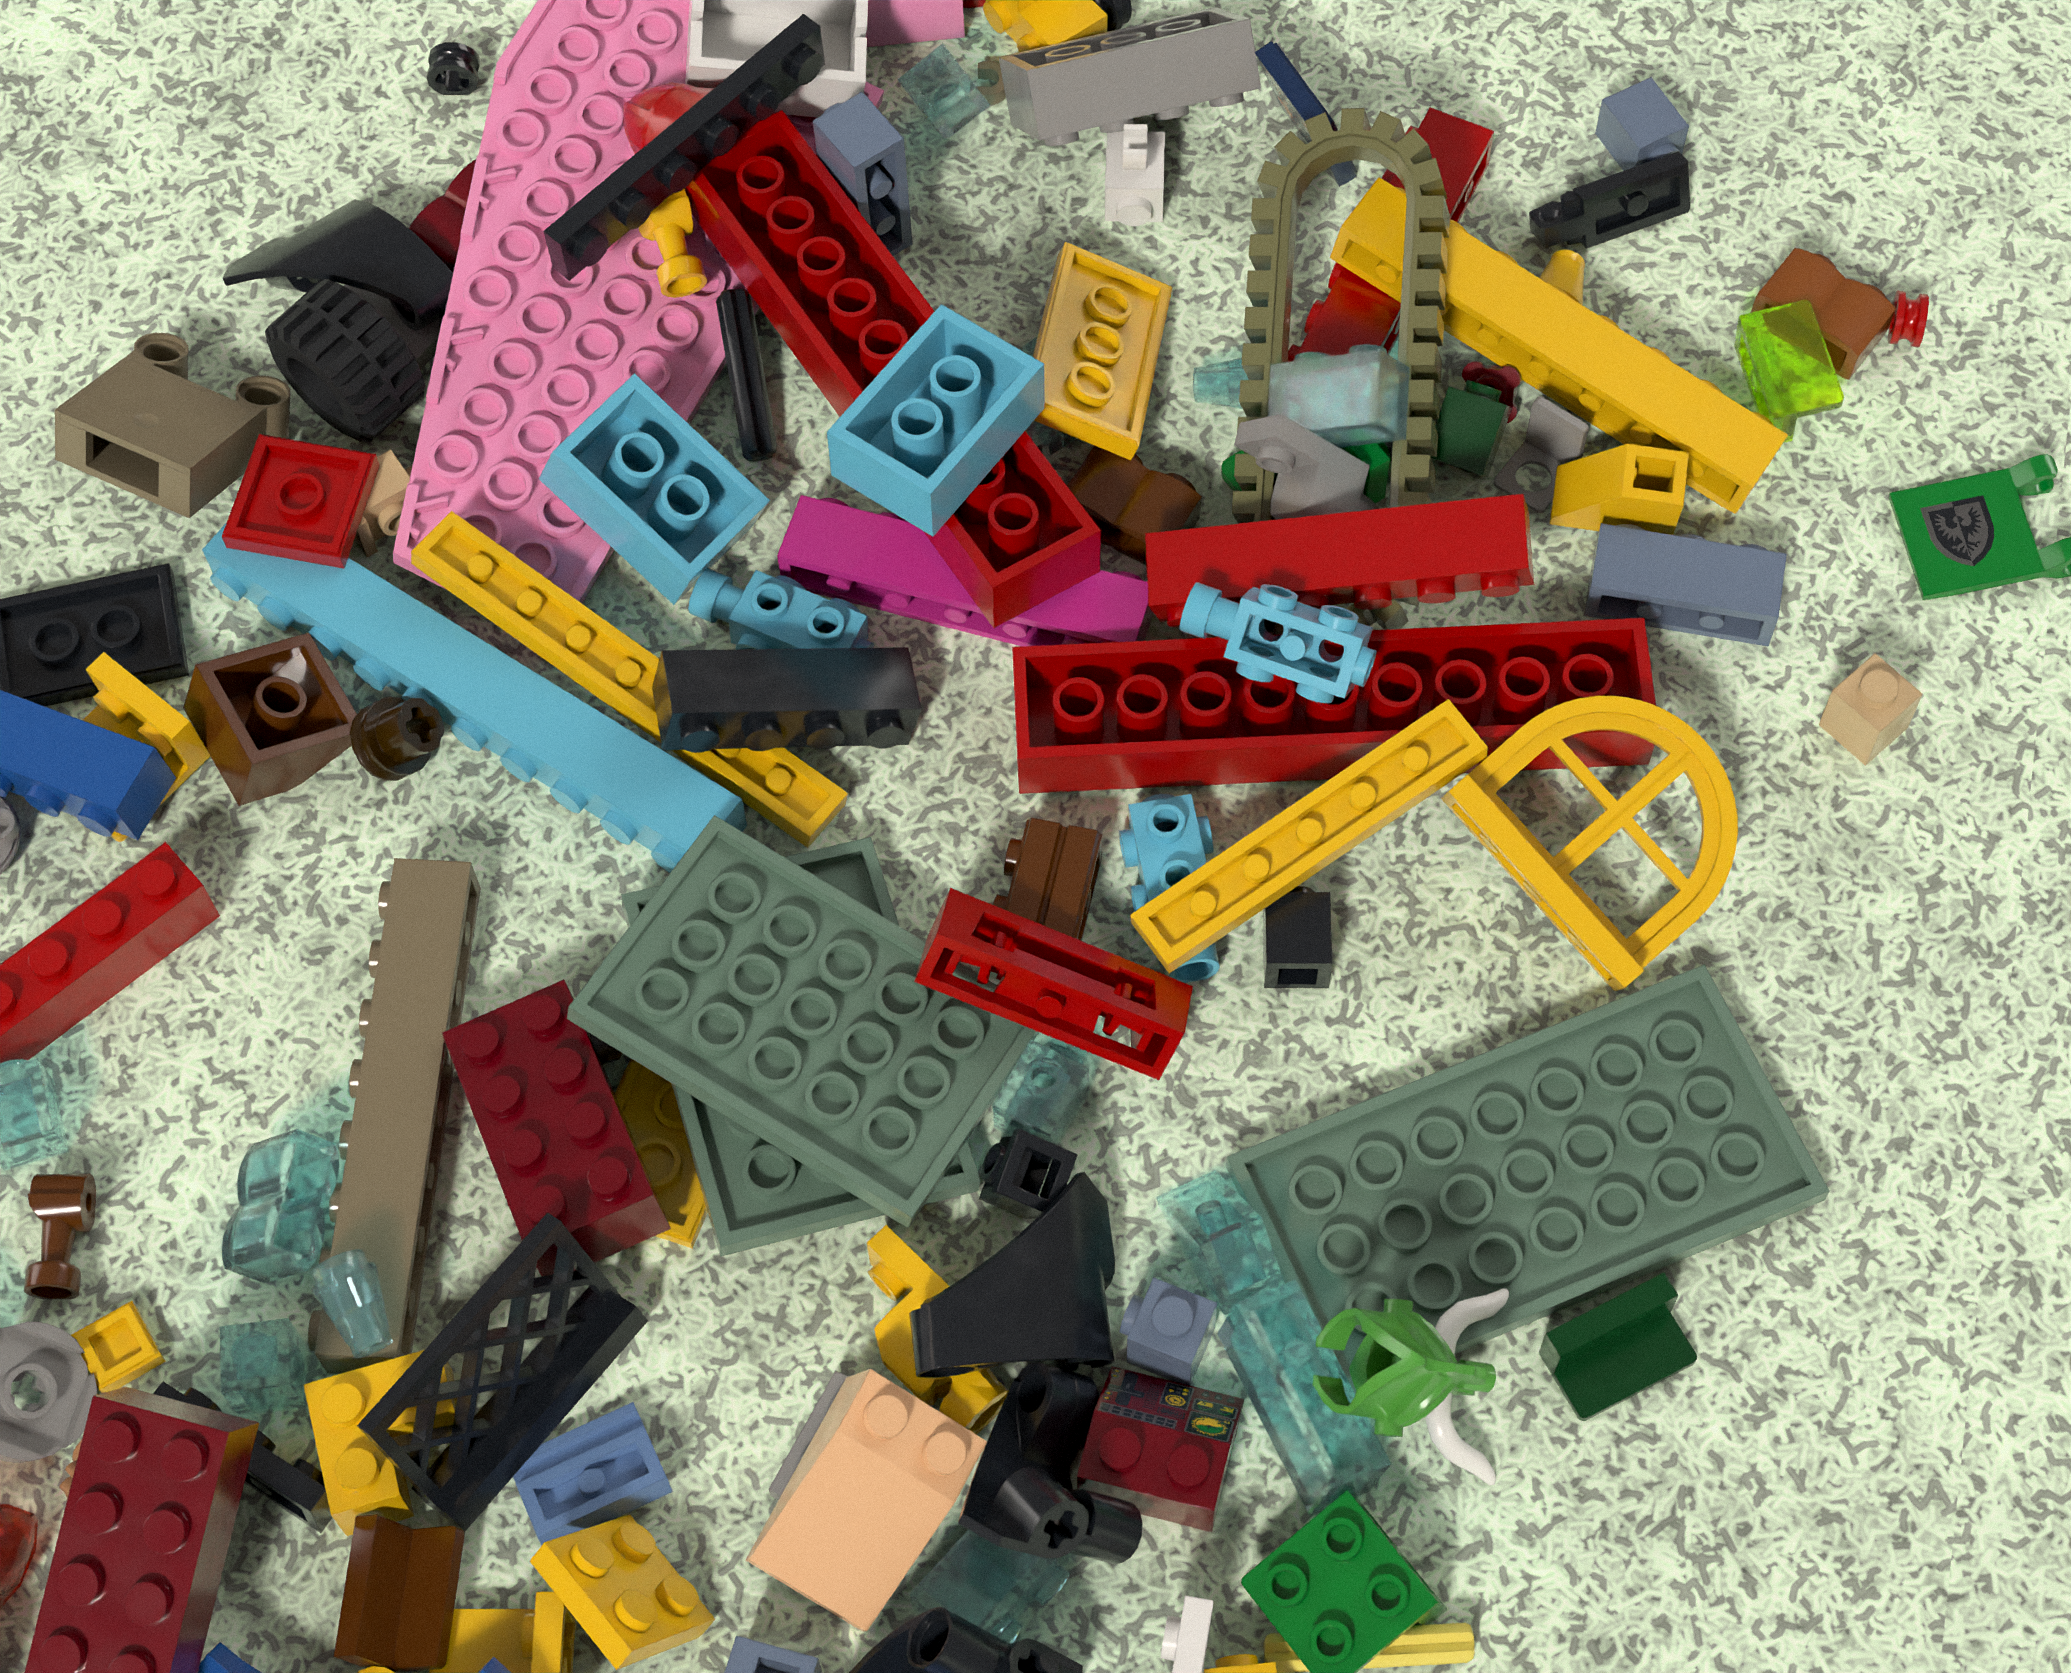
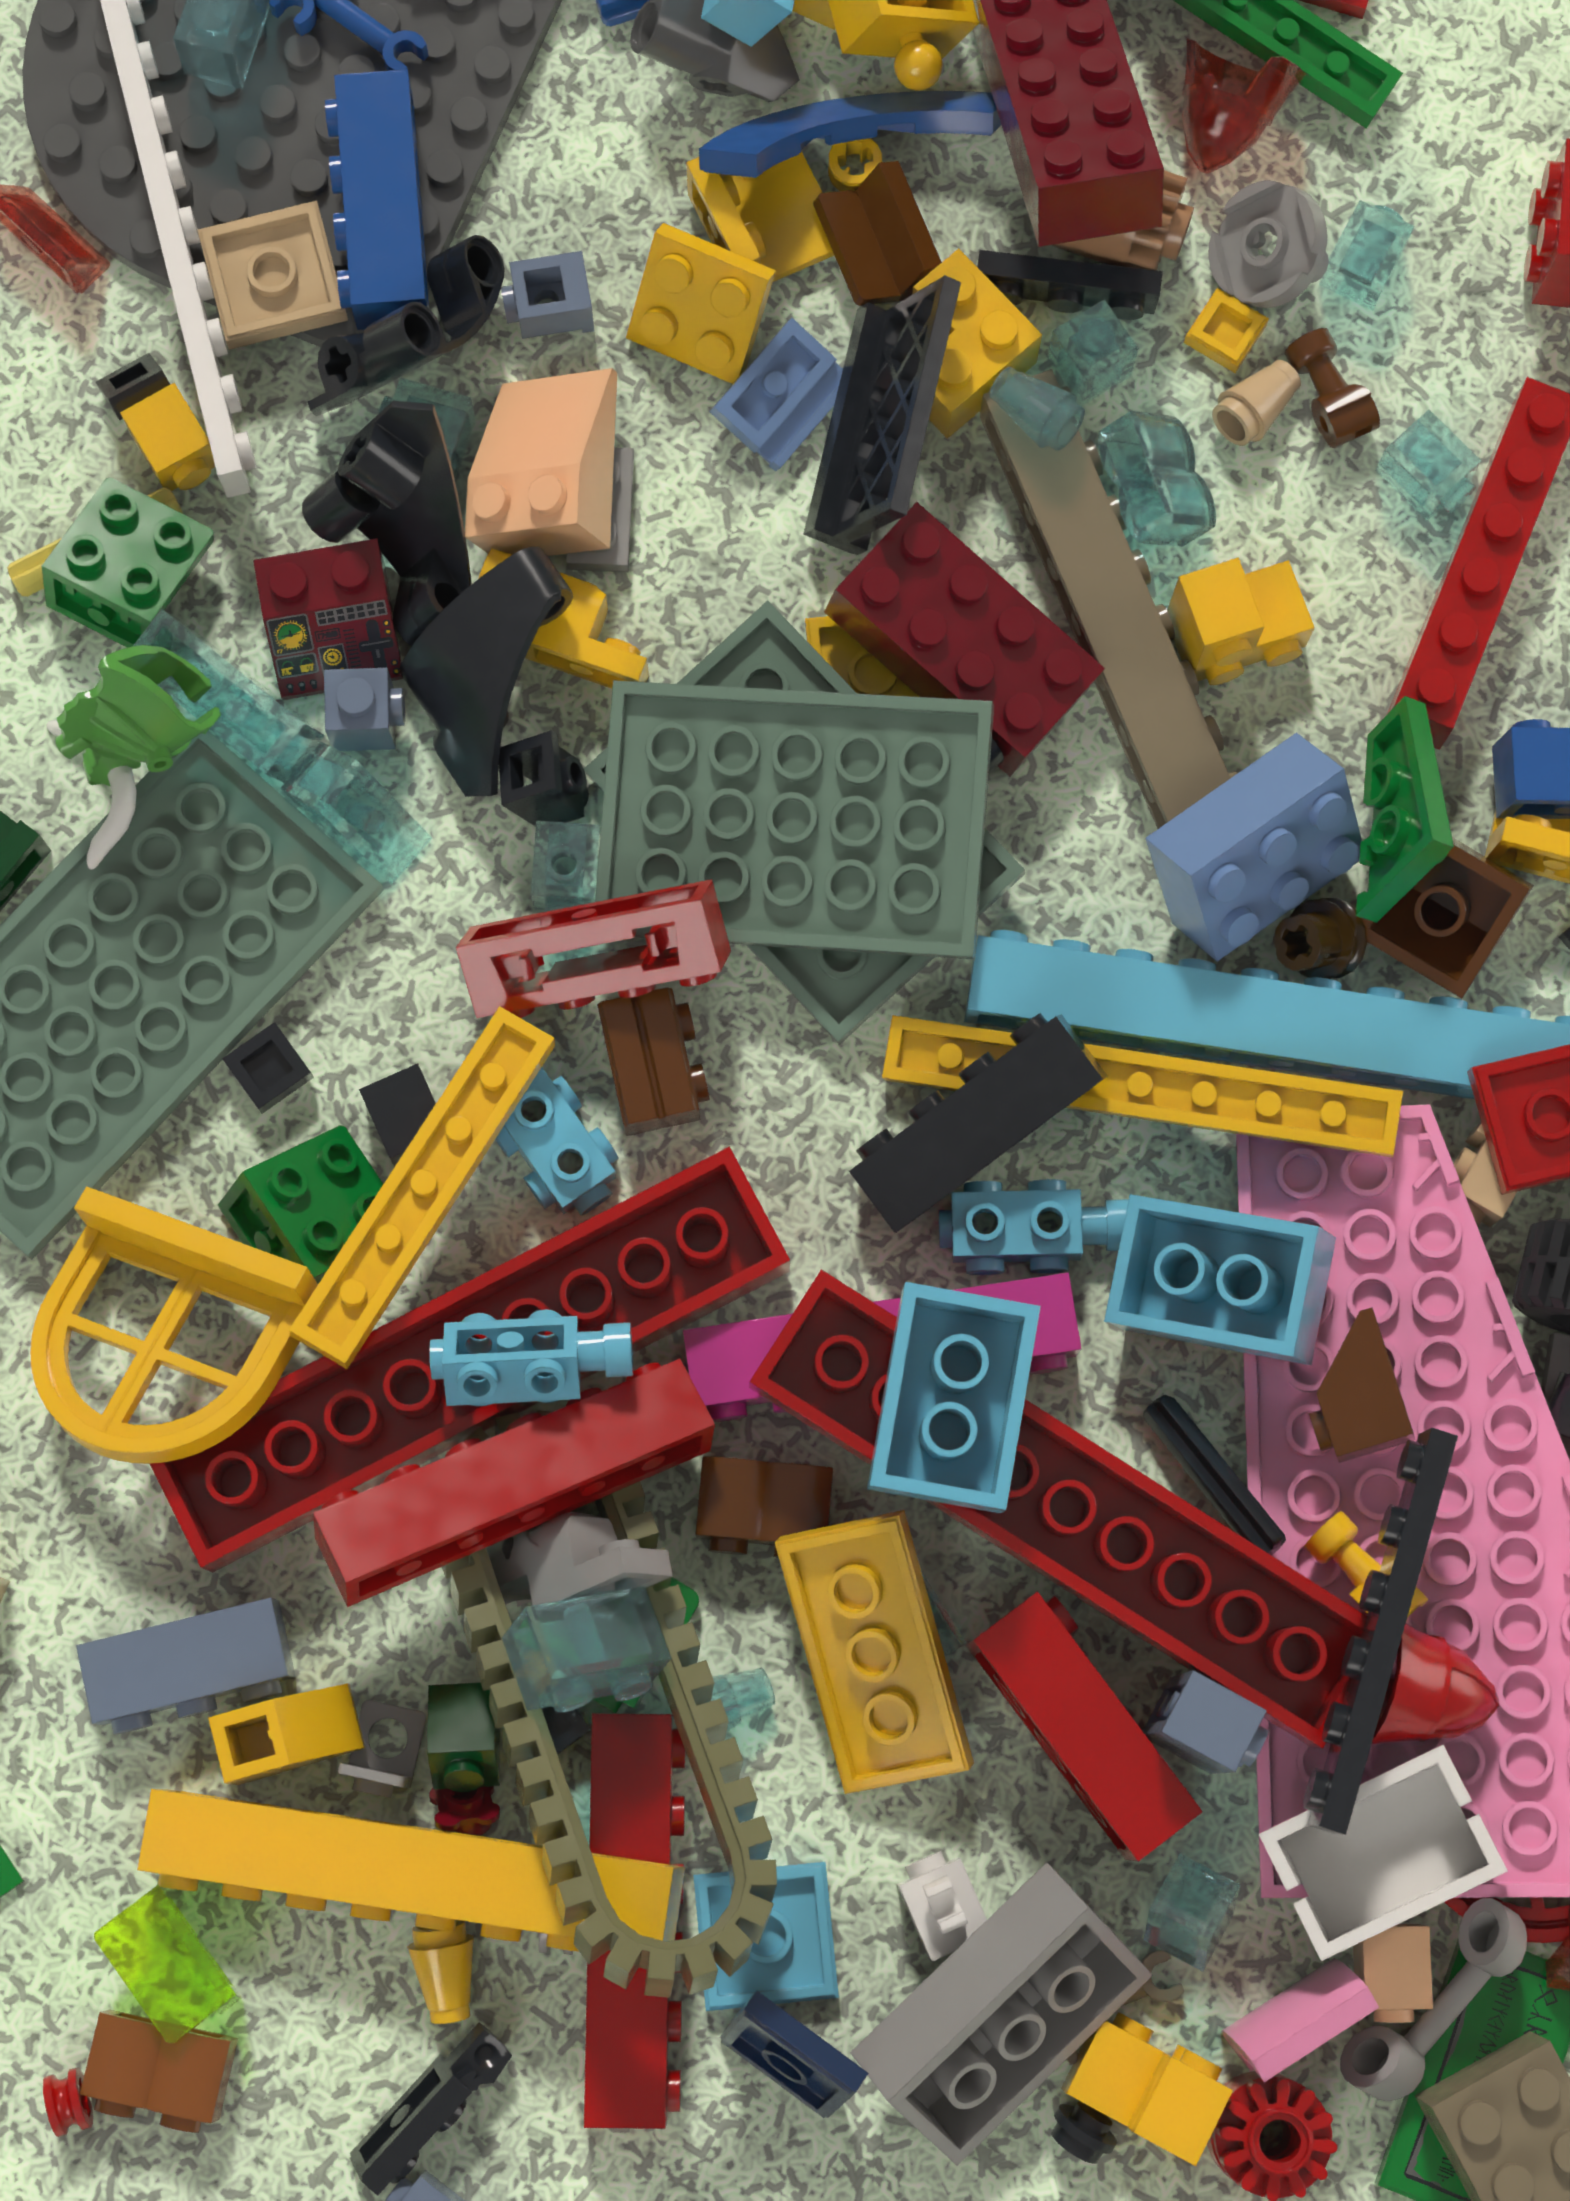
camera: 150 degrees right, 15 degrees up
(138, 1253) = (1255, 403): none -> tan cone
(259, 766) = (1408, 805): none -> green wing
(290, 1038) = (1238, 619): none -> yellow brick
(402, 812) = (1256, 846): none -> medium blue brick
(593, 354) = (1361, 1397): none -> reddish brown slope
(957, 218) = (1083, 1726): none -> red brick
(1319, 220) = (796, 1948): none -> medium azure tile
(1408, 1042) = (268, 1067): none -> black plate
(1419, 894) = (304, 1200): none -> green bracket

